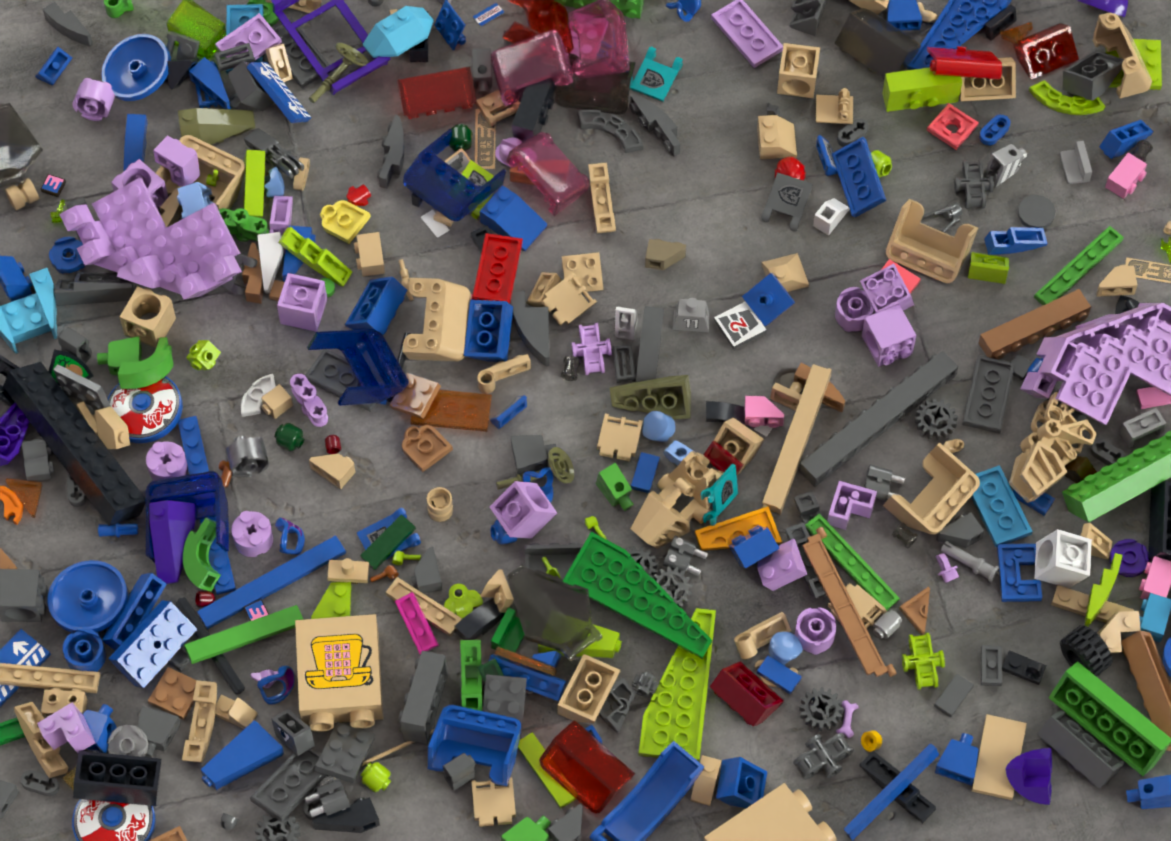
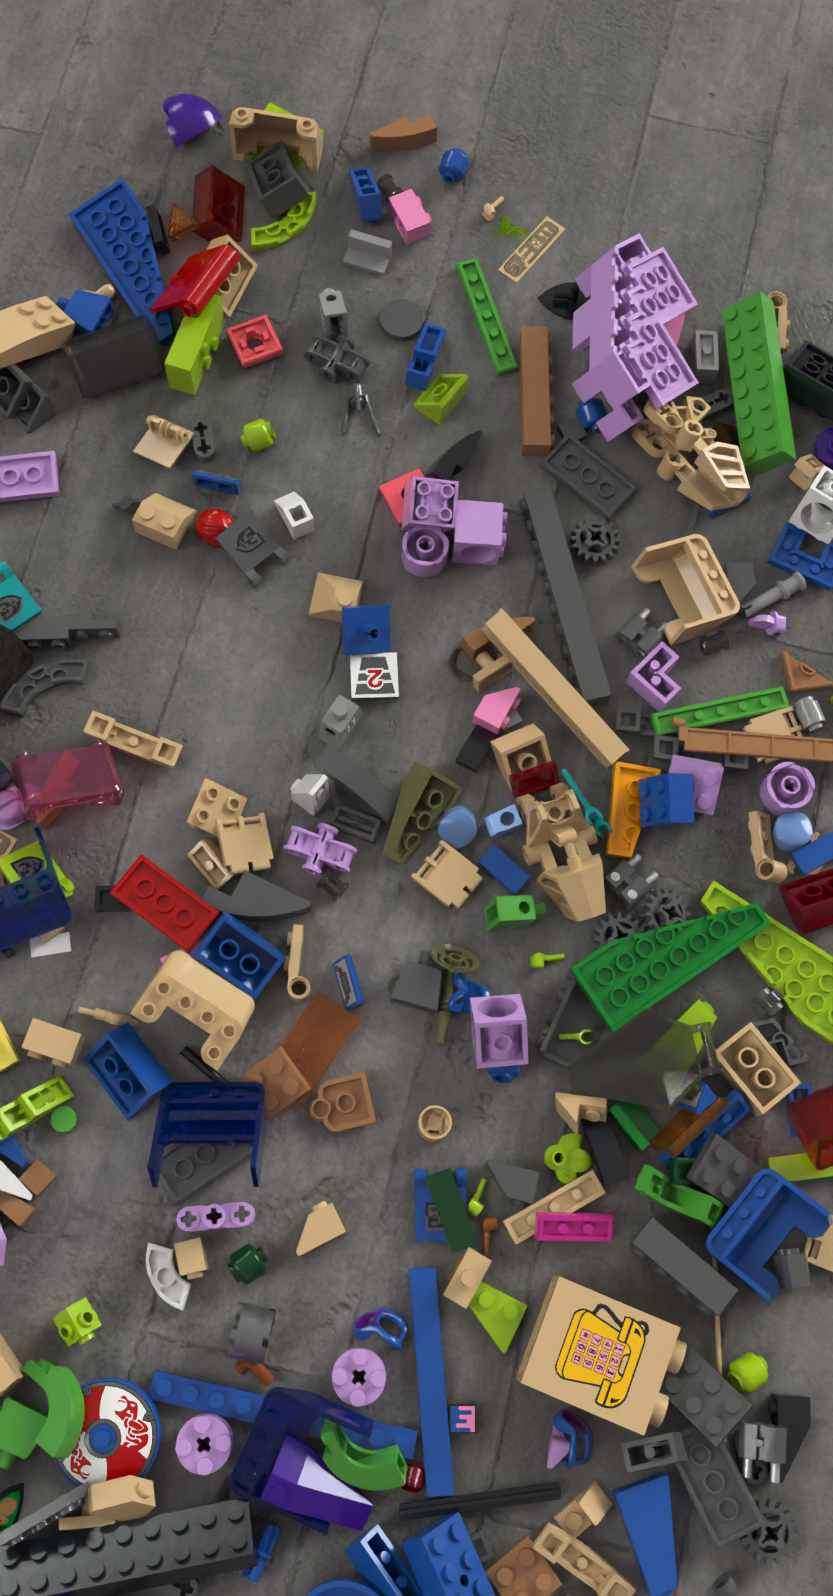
camera: 70 degrees left, 10 degrees up
(243, 634) = (489, 1452): bright green tile -> none
(302, 302) = (76, 1160): lavender brick -> none
(332, 444) = (284, 1213): dark red piece -> none
(512, 217) = (99, 852): blue slope -> none
(663, 254) = (241, 713): dark tan slope -> none
(798, 70) = (99, 449): tan brick -> none
(859, 177) = (264, 461): blue tile -> none
(927, 248) = (392, 439): tan windscreen -> none
(941, 295) = (454, 458): none -> black slope
(954, 445) = (631, 543): tan arm -> none
(992, 130) = (283, 306): blue plate -> none
(1000, 508) = (729, 535): dark azure plate -> none
(1118, 282) = (526, 288): tan slope -> none

